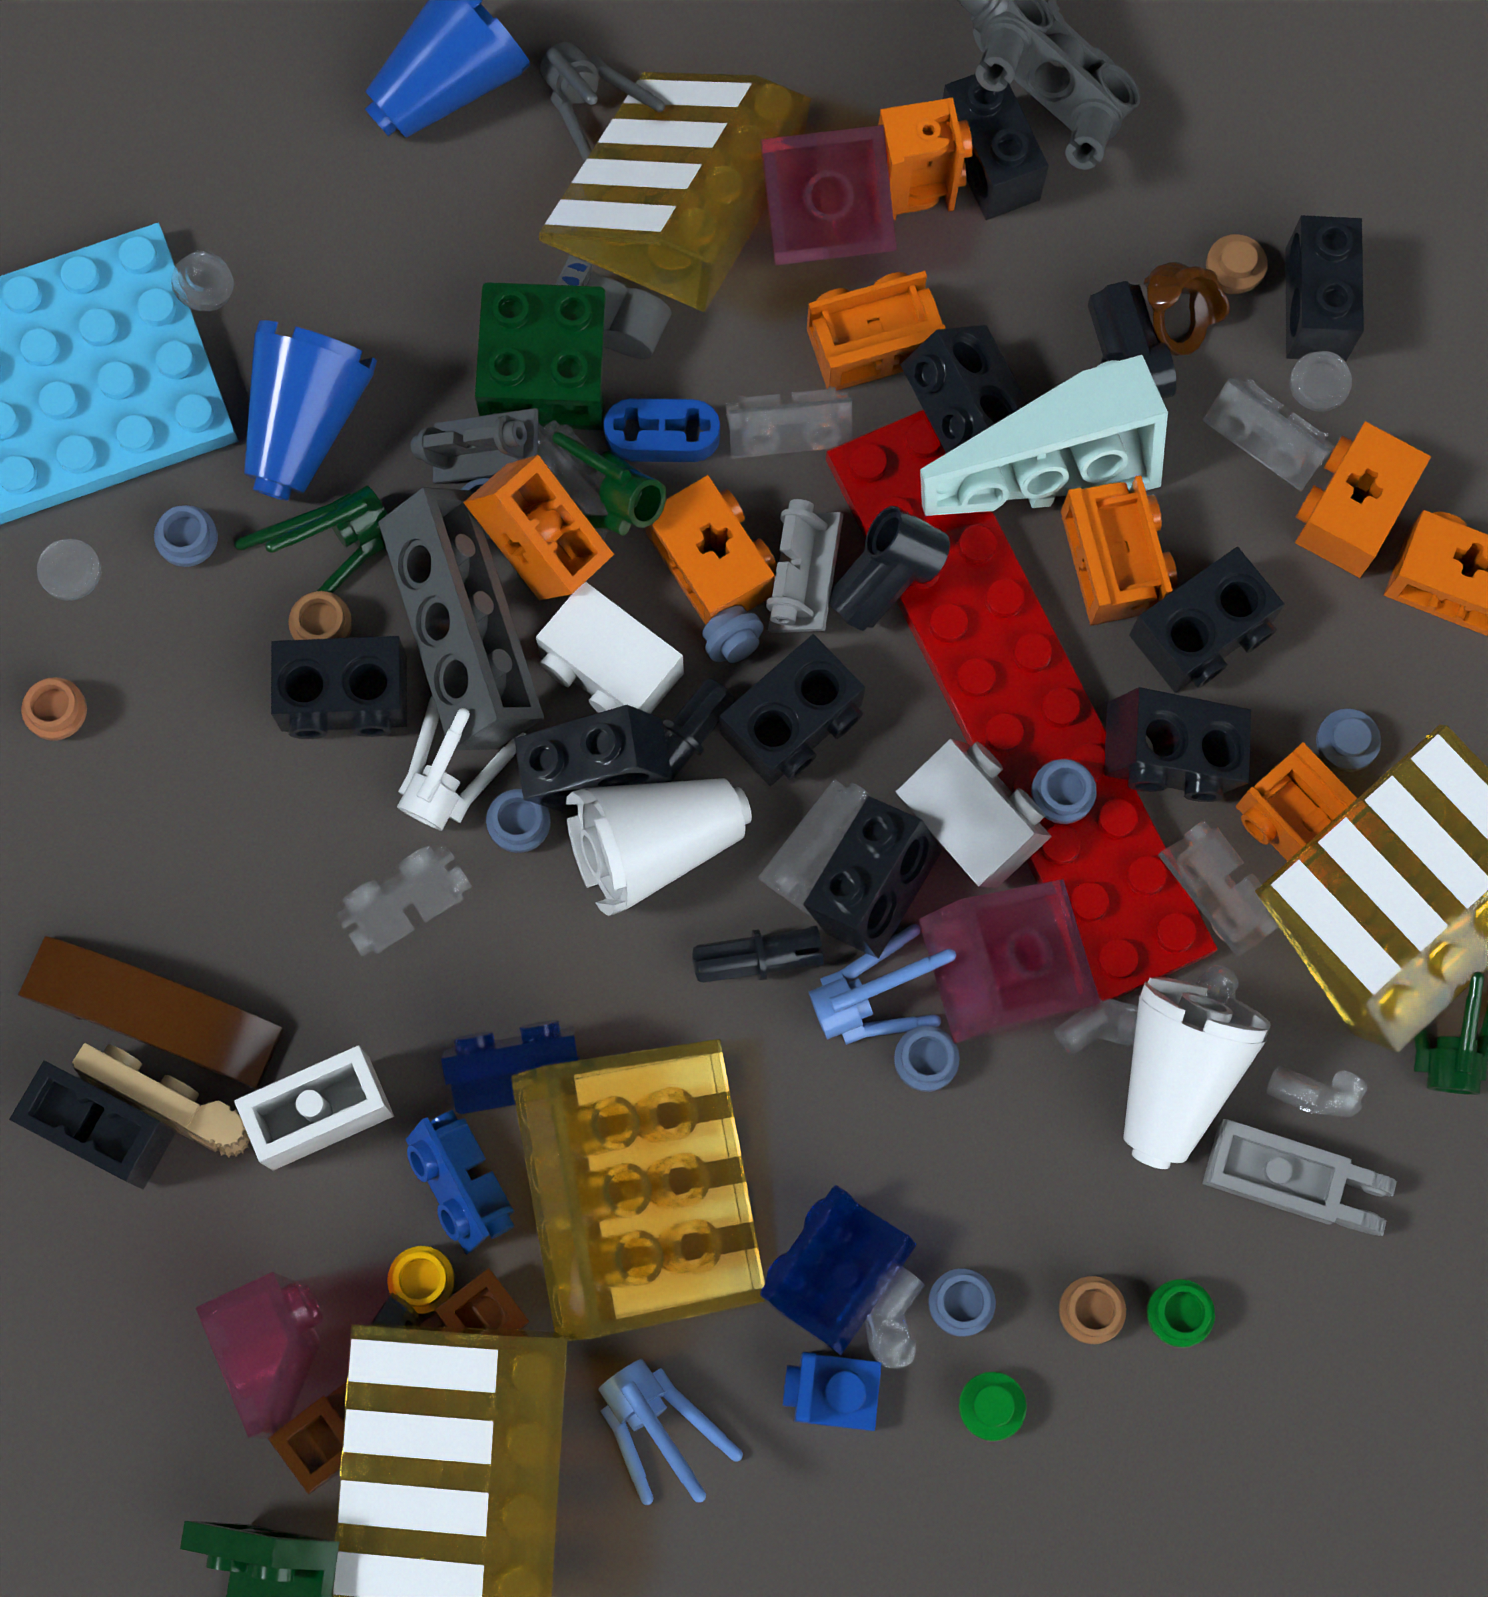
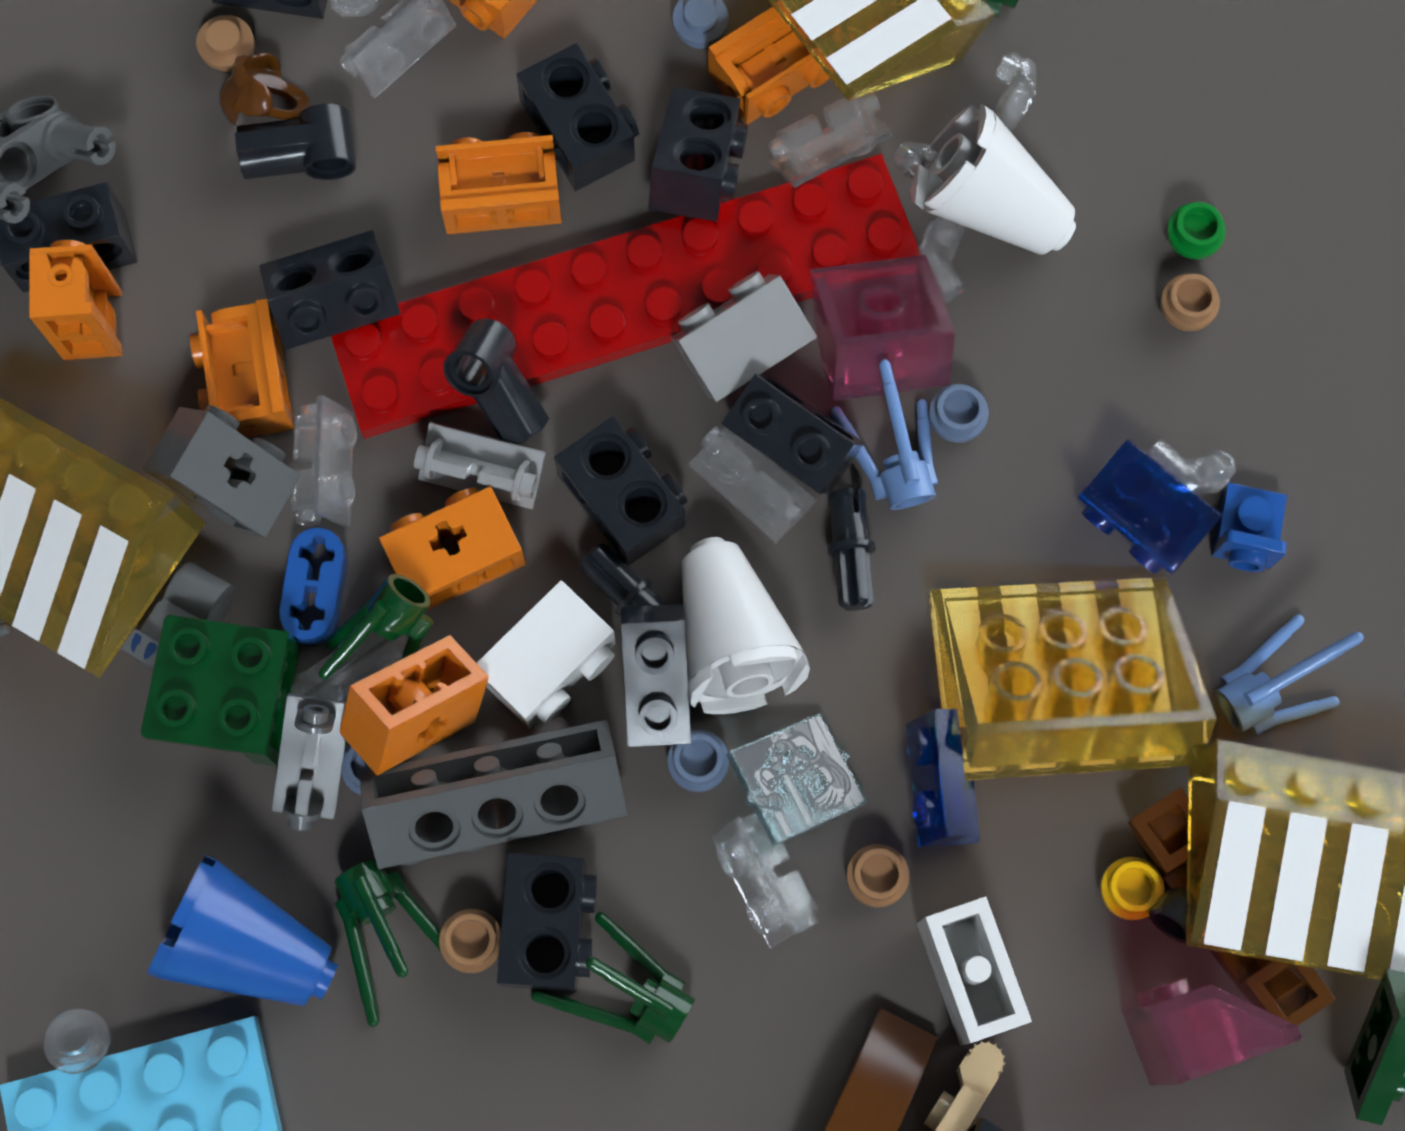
camera: 85 degrees left, 0 degrees up
(185, 536) = (359, 1075): sand blue plate -> none
(264, 803) = (658, 1006): none -> dark green plant
(414, 1012) = (877, 875): none -> medium nougat plate
(431, 792) = (665, 838): white plant -> none
(467, 1209) = (1069, 836): blue hinge -> none
(506, 919) = (796, 779): none -> piece
(732, 634) = (538, 538): sand blue plate -> none
(738, 345) = (193, 460): none -> dark grey brick
(828, 195) = (102, 383): clear pink slope -> none
(962, 1302) = (1177, 409): sand blue plate -> none
(992, 1406) = (1268, 394): green plate -> none
(1064, 791) = (730, 255): sand blue plate -> none
(1078, 435) = (393, 189): light aqua wedge -> none
(1292, 1176) = (1086, 124): light grey hinge -> none

